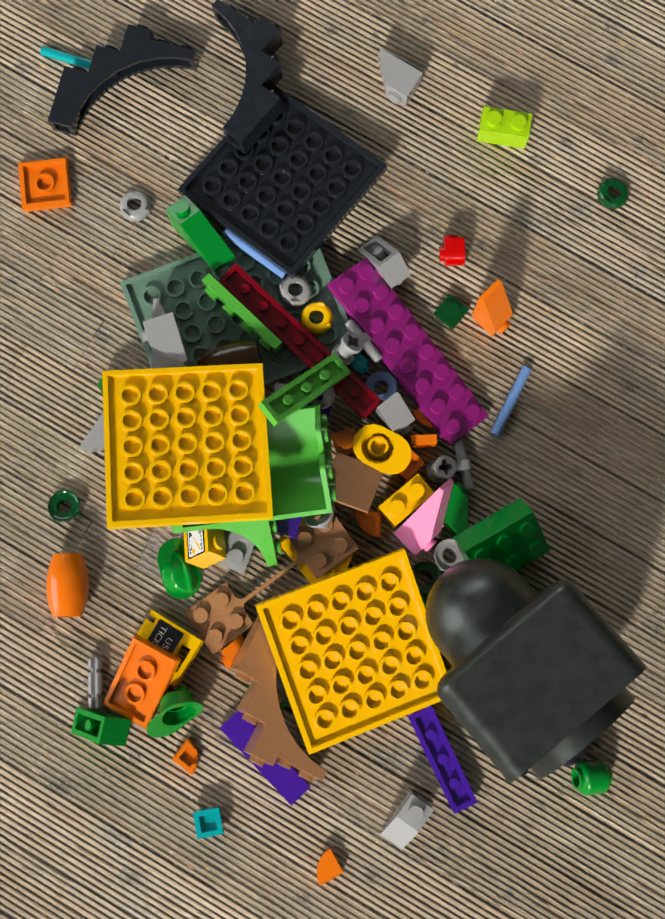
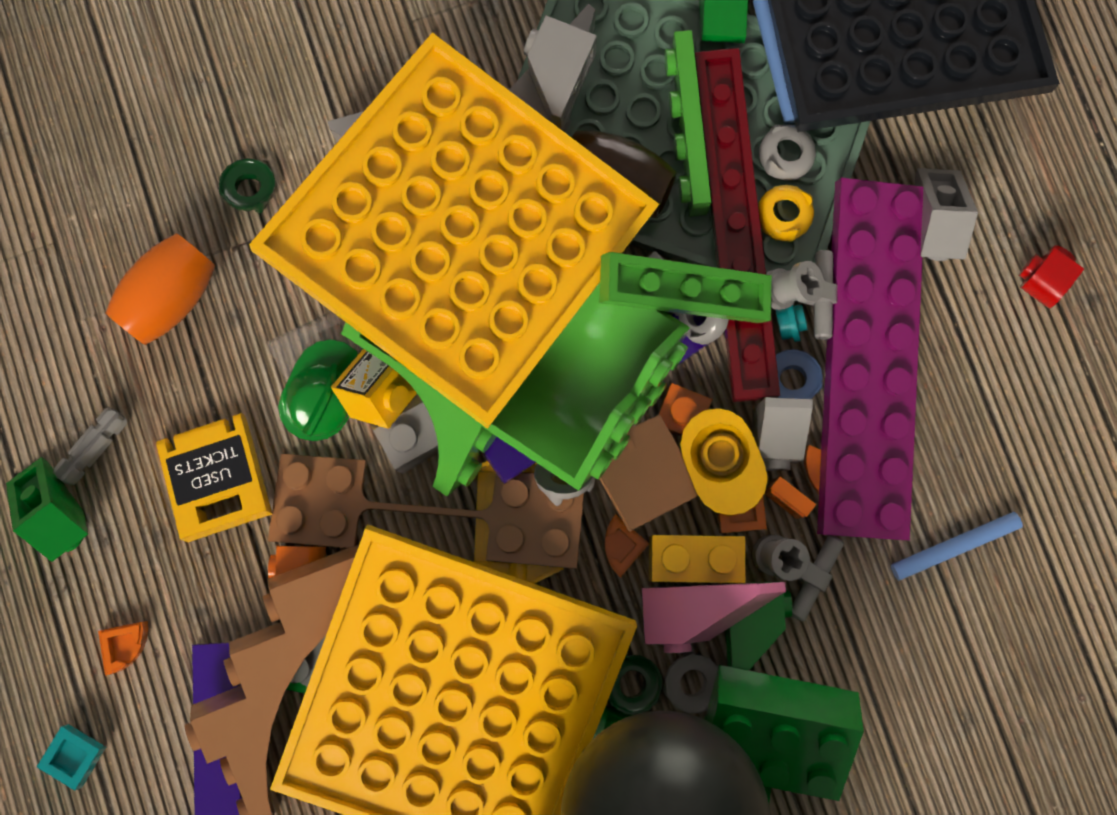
camera: 45 degrees right, 0 degrees up
(141, 681) = (145, 496): orange tile -> none
(174, 712) = (151, 572): green piece -> none
(451, 312) = (976, 356): dark green plate -> none
(493, 310) = (1044, 400): orange slope -> none

